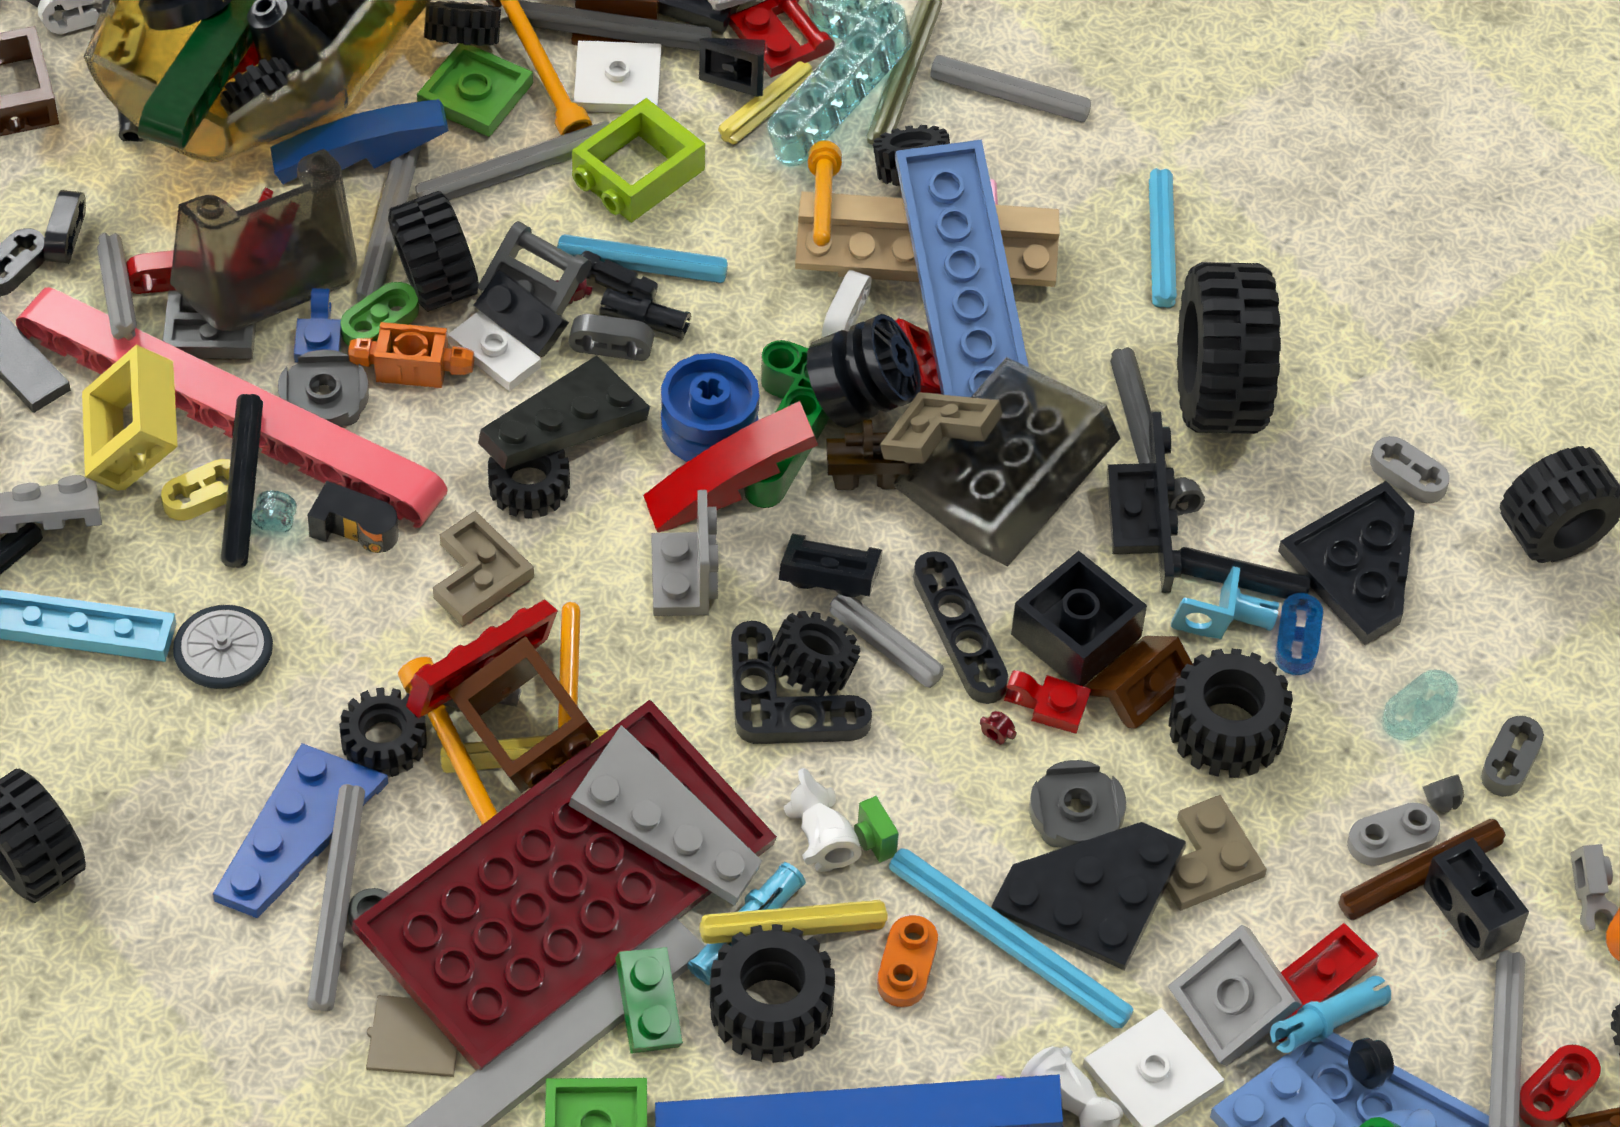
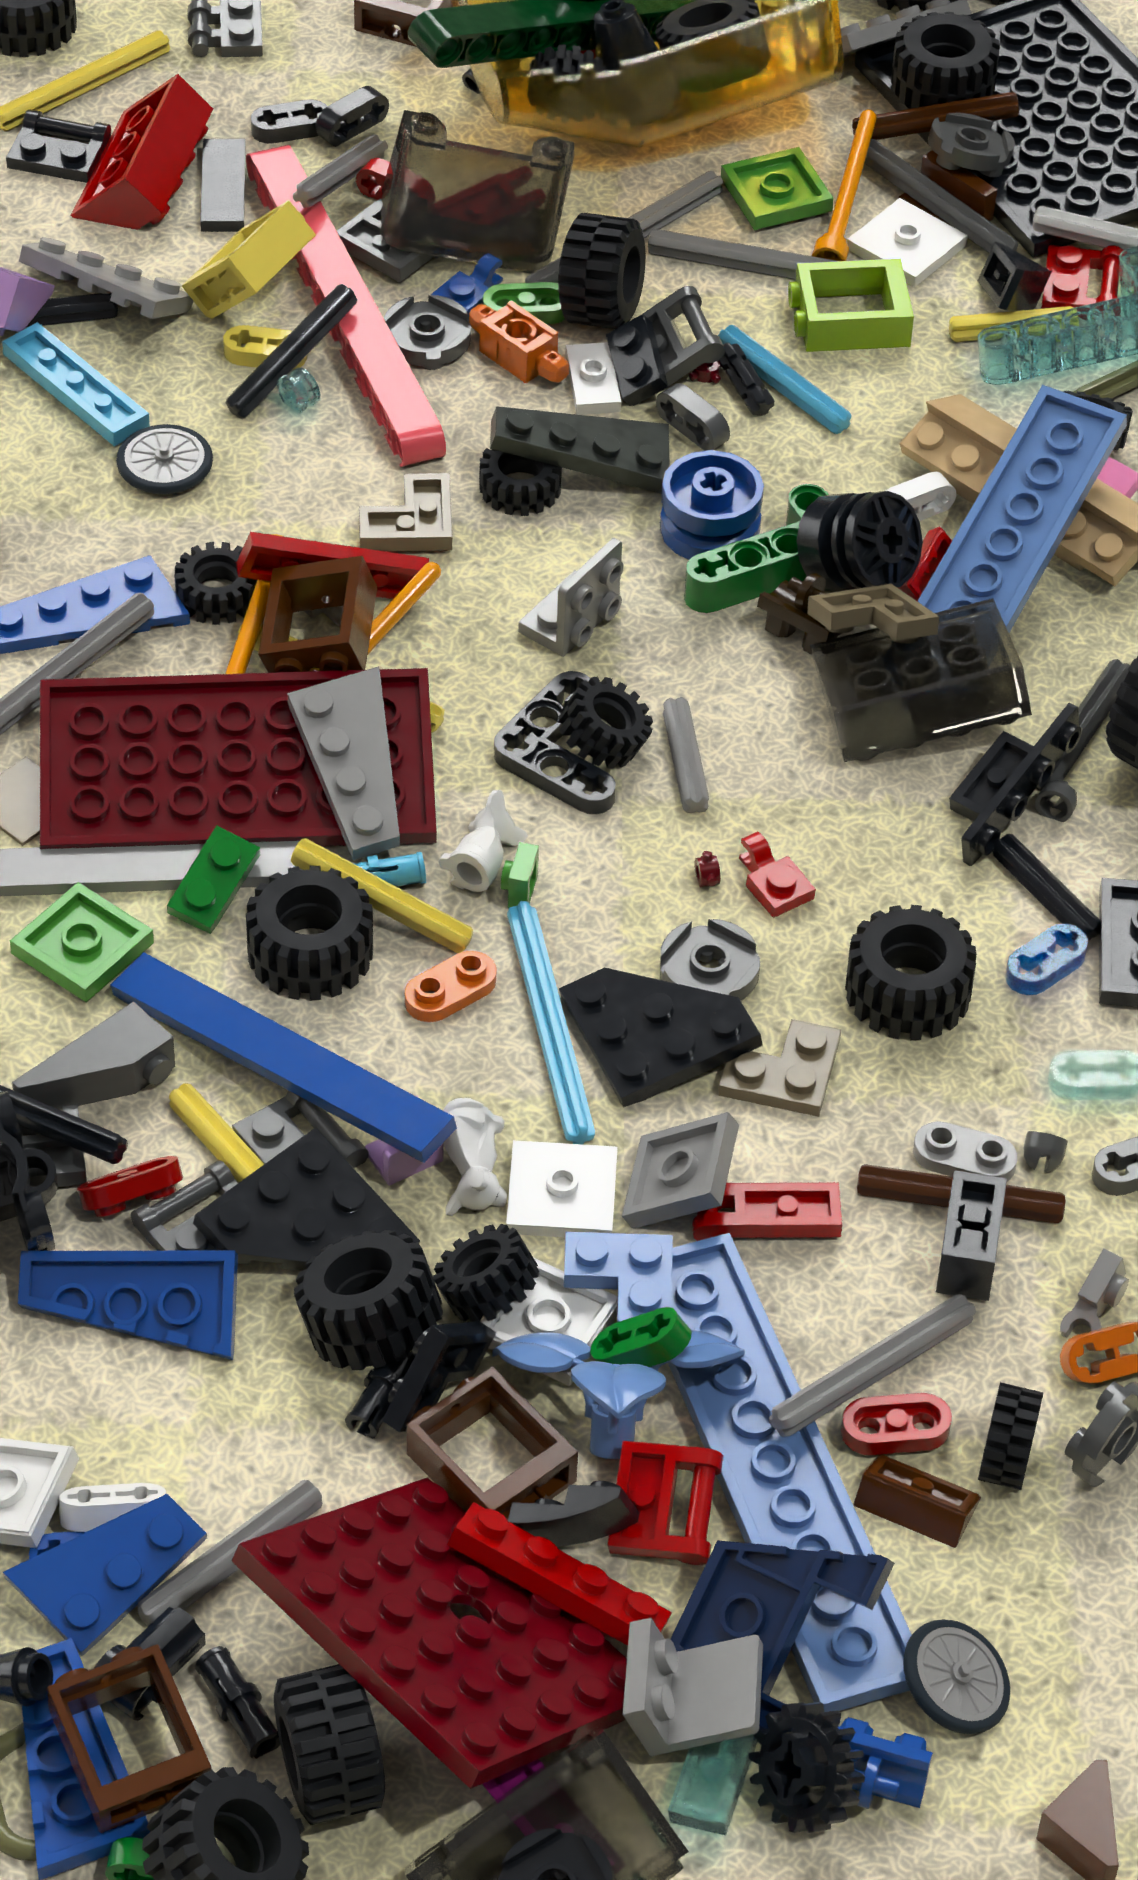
camera: 40 degrees right, 5 degrees down
(353, 517) = (353, 426): black leg -> none
(372, 135) = (648, 172): blue slope -> none
(462, 23) = (808, 131): black tyre -> none
(647, 311) = (742, 417): black pin -> none
(730, 466) = (690, 547): red slope -> none
(824, 163) = (1010, 388): light orange piece -> none
(830, 566) = (689, 672): black plate -> none
(964, 626) = (757, 783): black beam -> none
(1078, 619) = (852, 827): black brick -> none
(1142, 678) = (849, 905): reddish brown panel -> none
(1231, 607) = (1002, 900): medium azure bracket -> none
(1317, 1020) = (727, 1229): medium azure pin -> none
(1370, 1062) = (735, 1286): black plate -> none

